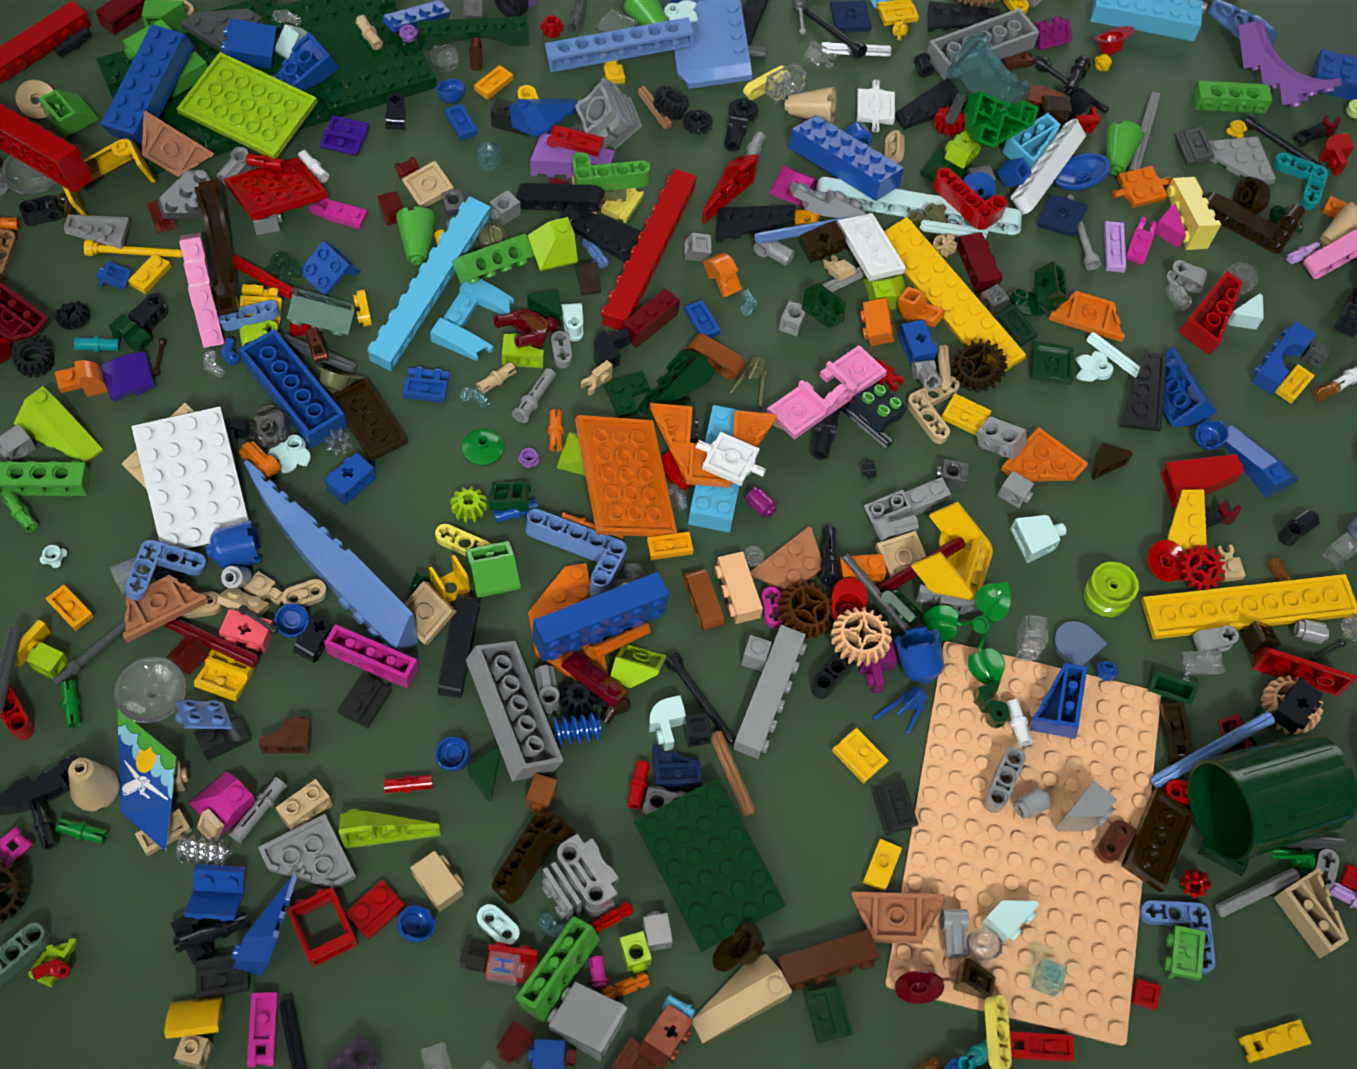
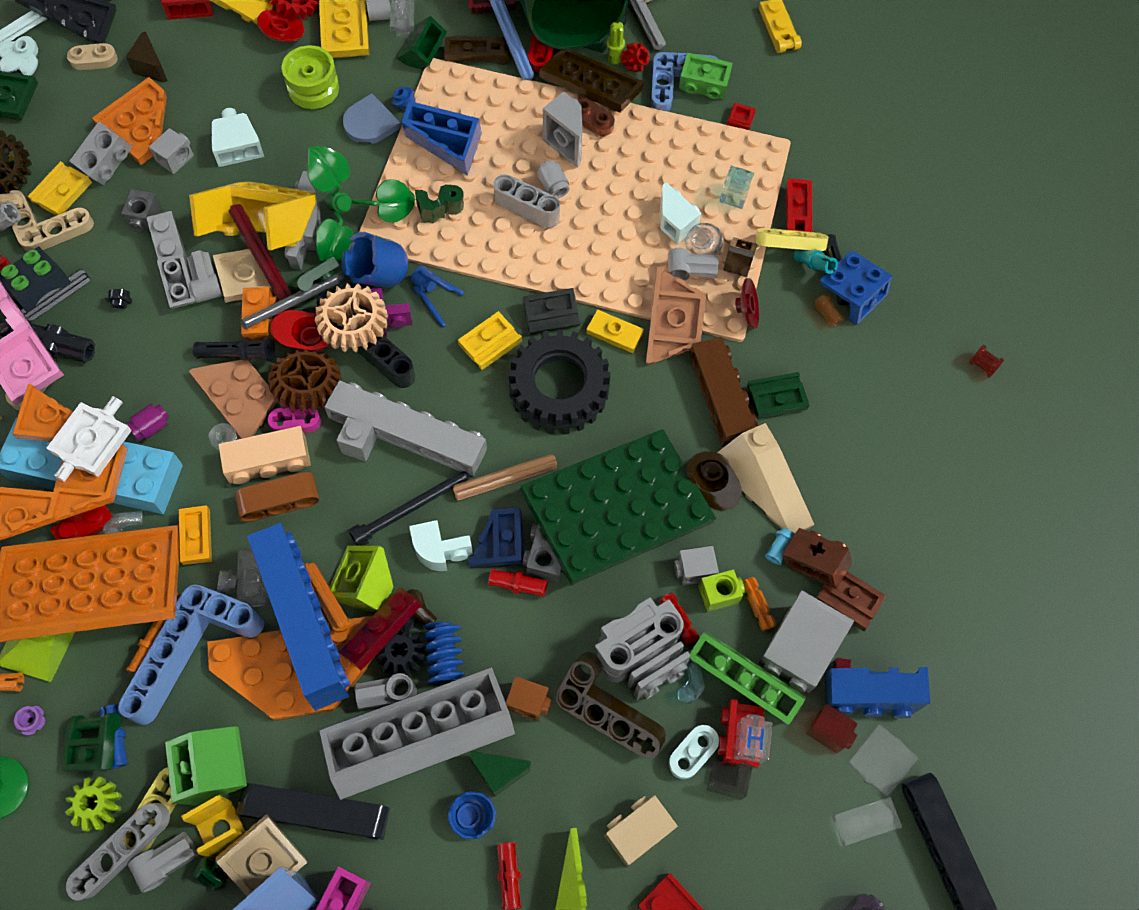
camera: 85 degrees left, 5 degrees up
(416, 924) = (697, 855): blue hair -> none
(426, 548) = (154, 866): none -> light grey piece
(434, 523) = (116, 849): none -> light grey beam
(597, 972) = (745, 634): dark pink pin -> none
(697, 729) = (454, 509): black brick -> none
(813, 841) = (559, 412): none -> black tyre
(1019, 723) = (463, 180): white pin -> none
(1031, 637) = (364, 154): clear brick -> none
(1104, 418) = (92, 56): none -> tan plate
(1205, 860) = (615, 43): none -> lime axle

